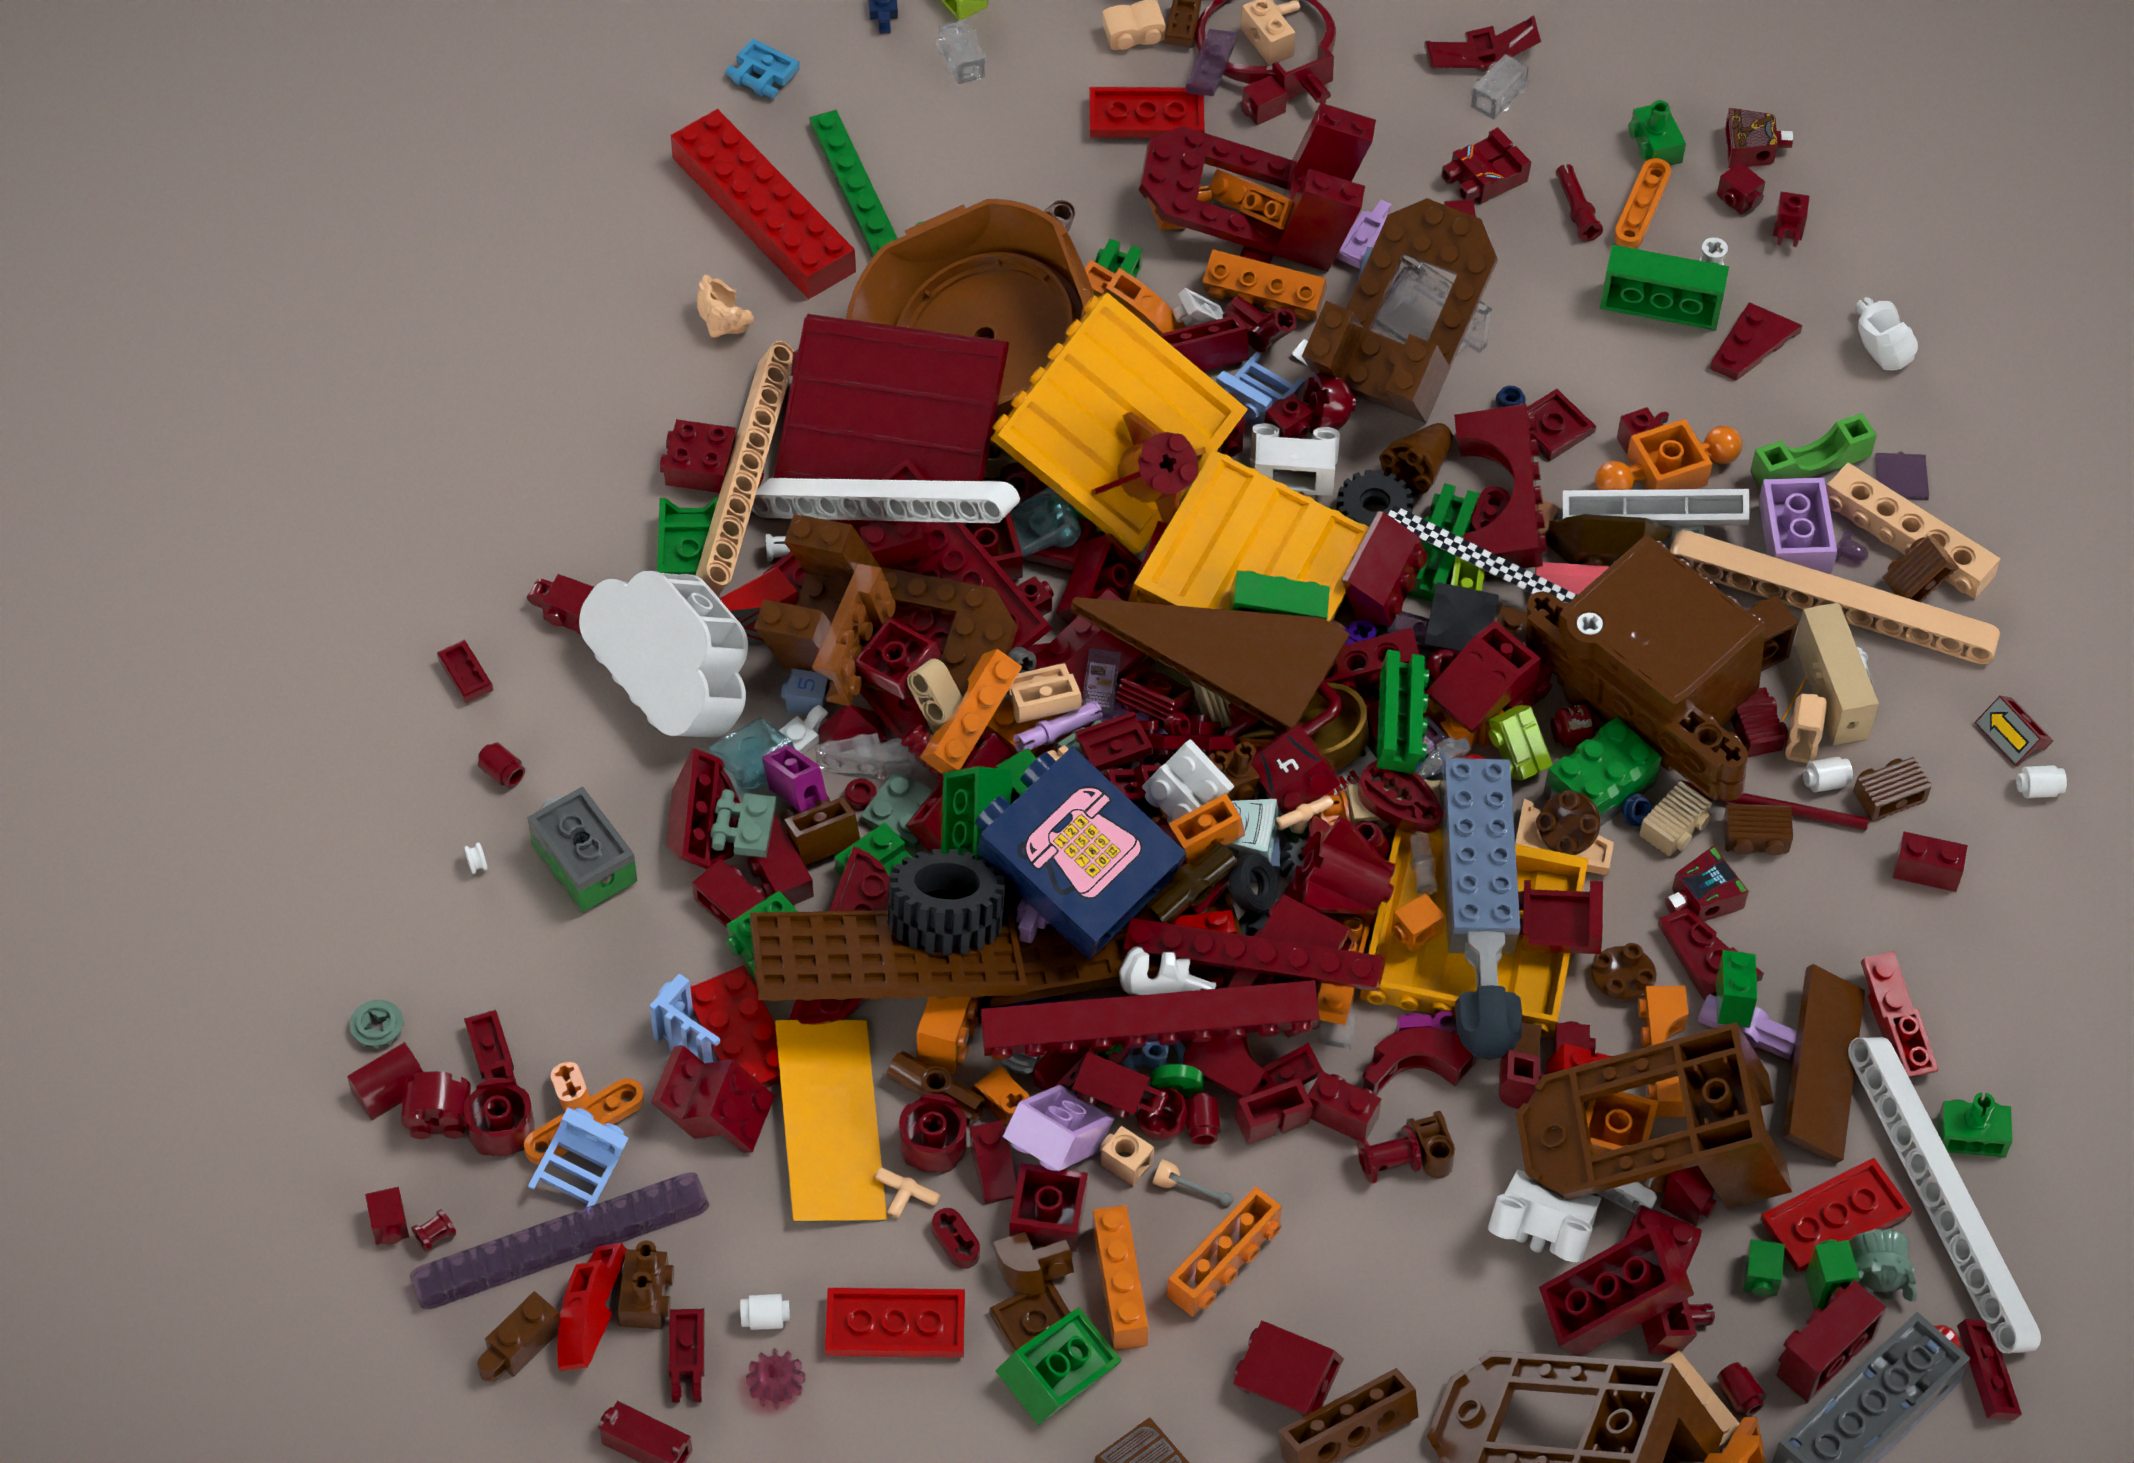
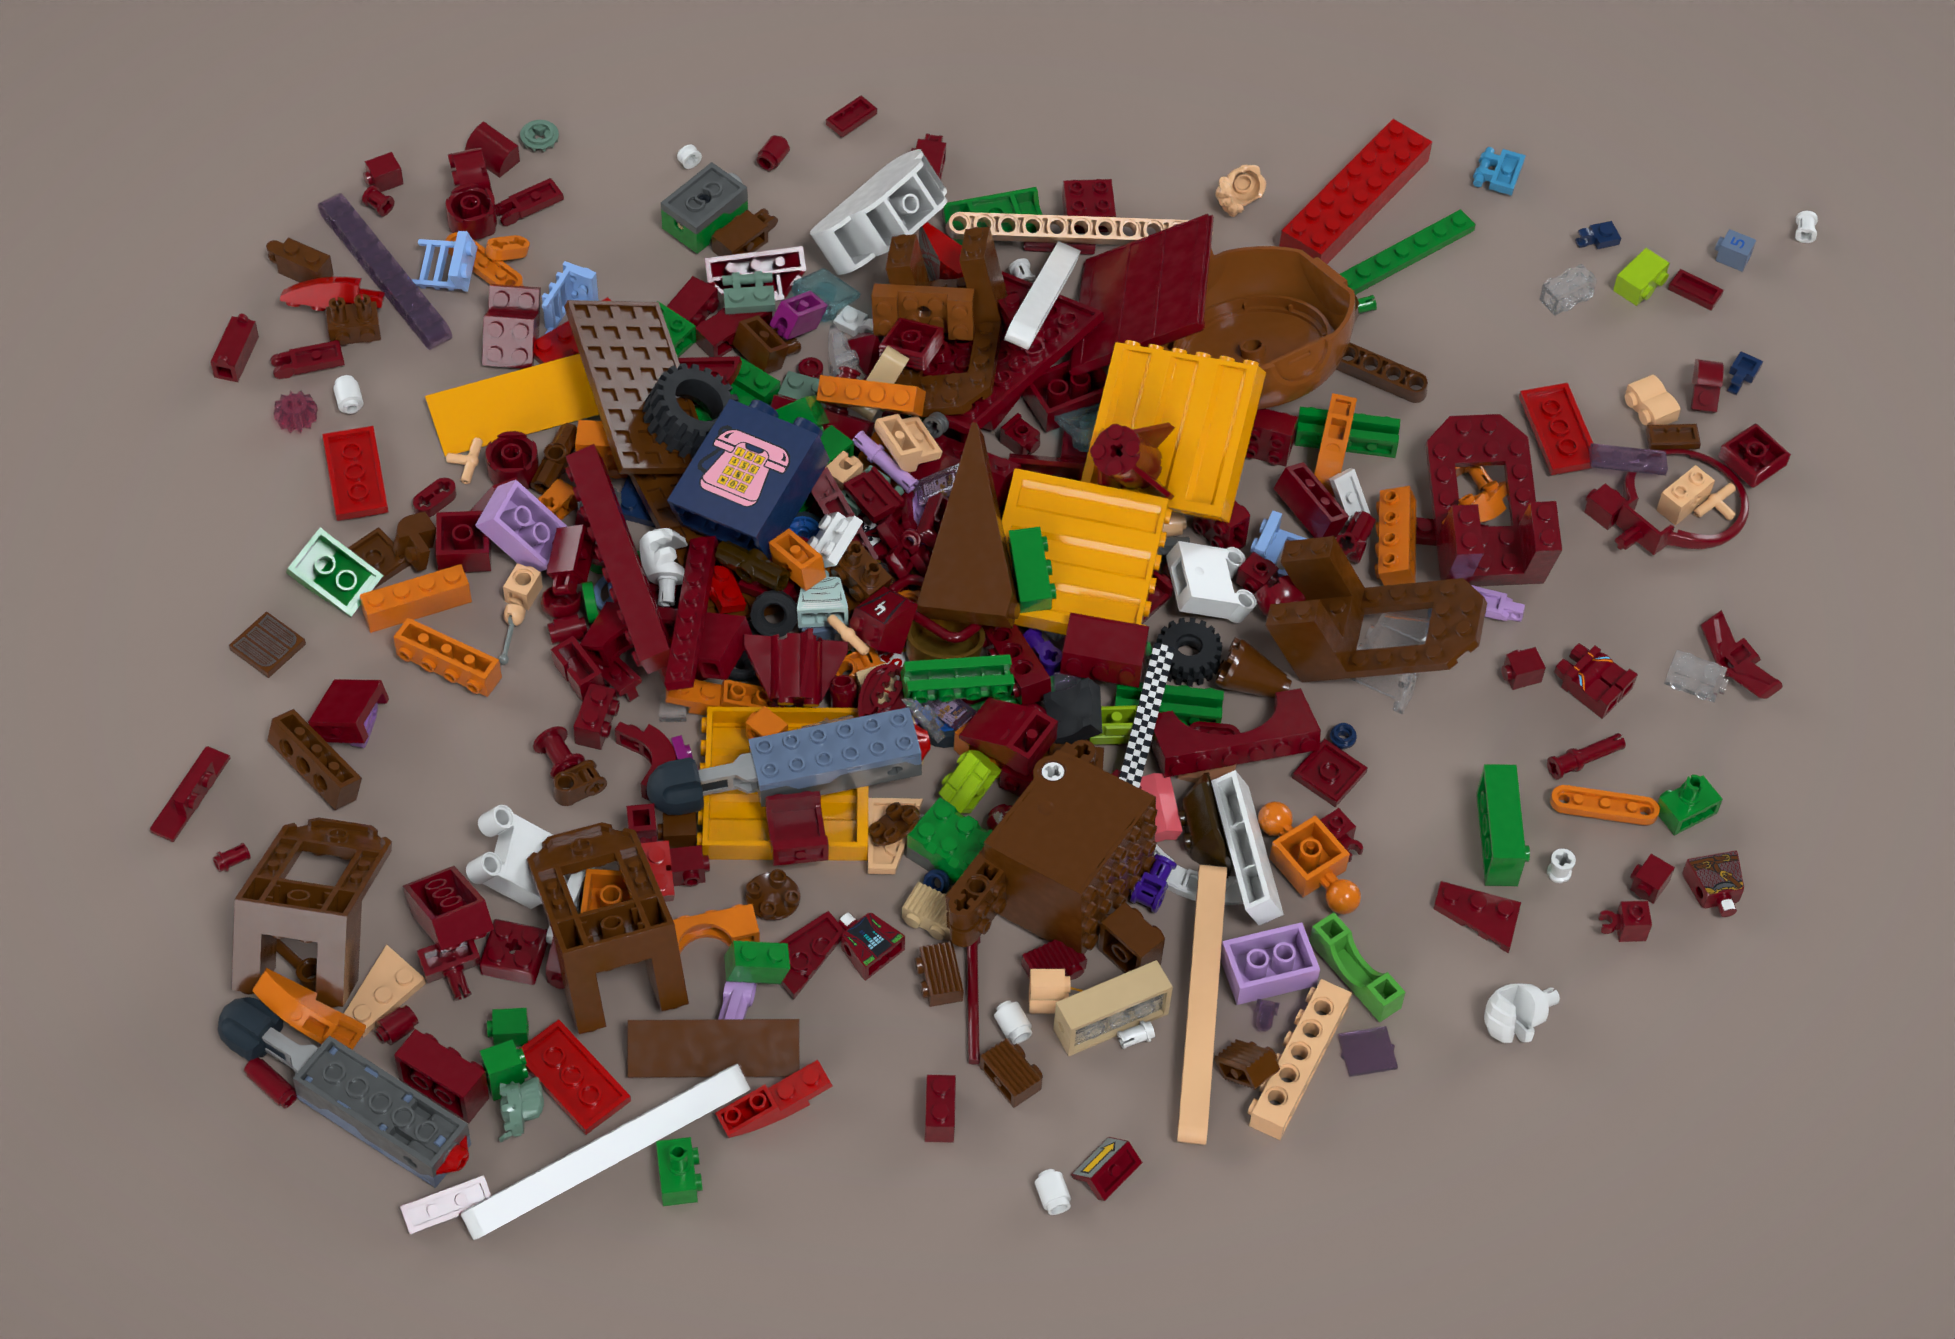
camera: 75 degrees right, 0 degrees up
(632, 820) = (744, 233): none -> reddish brown brick

